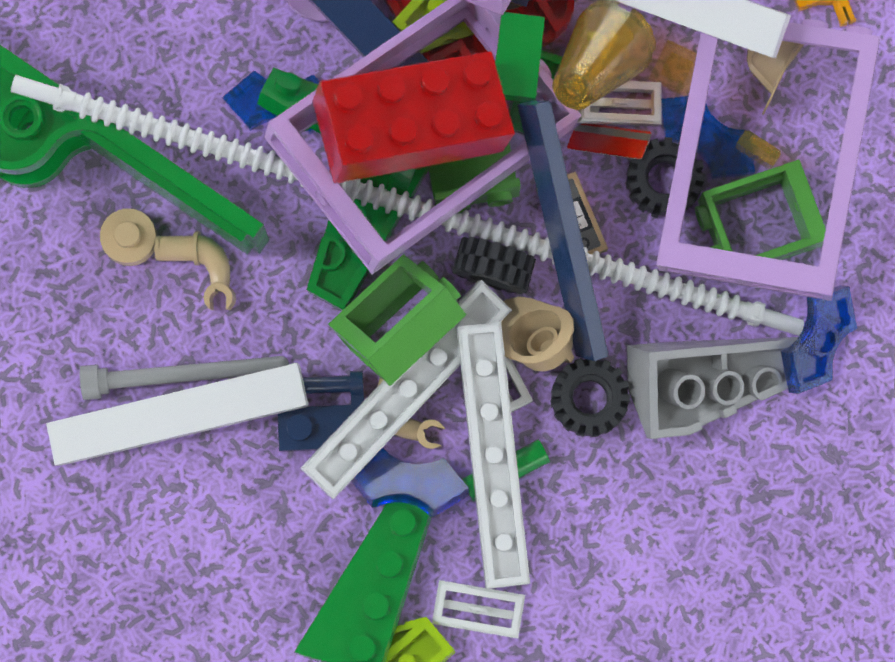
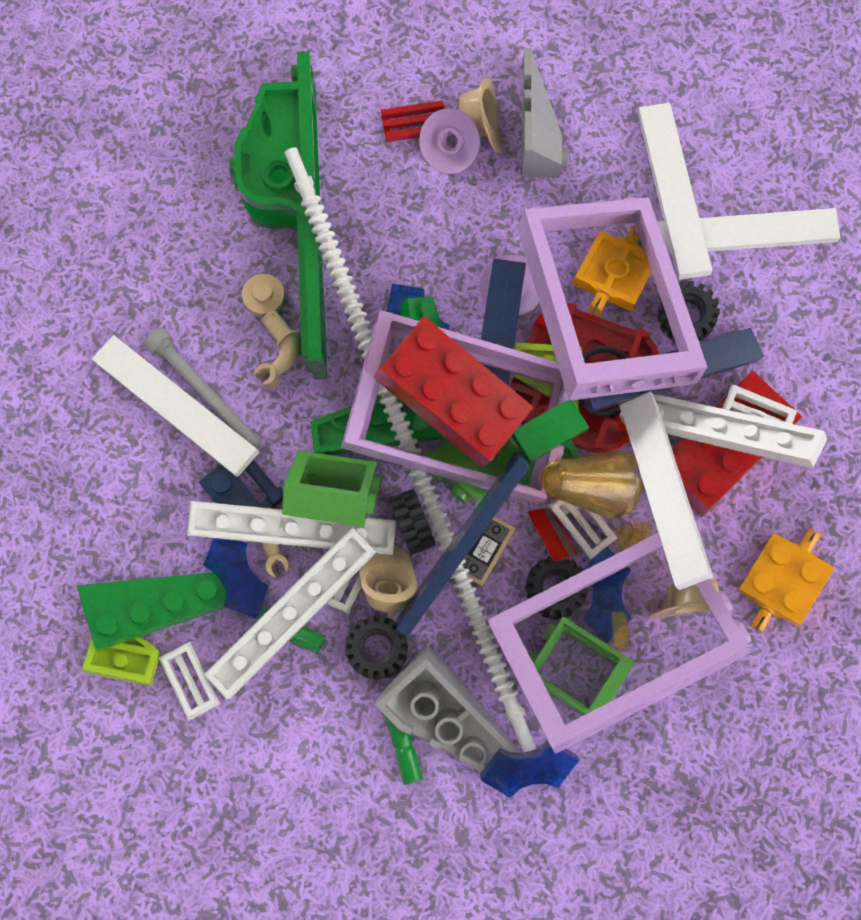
camera: 60 degrees right, 5 degrees down
(714, 449) = (405, 754): none -> green piece

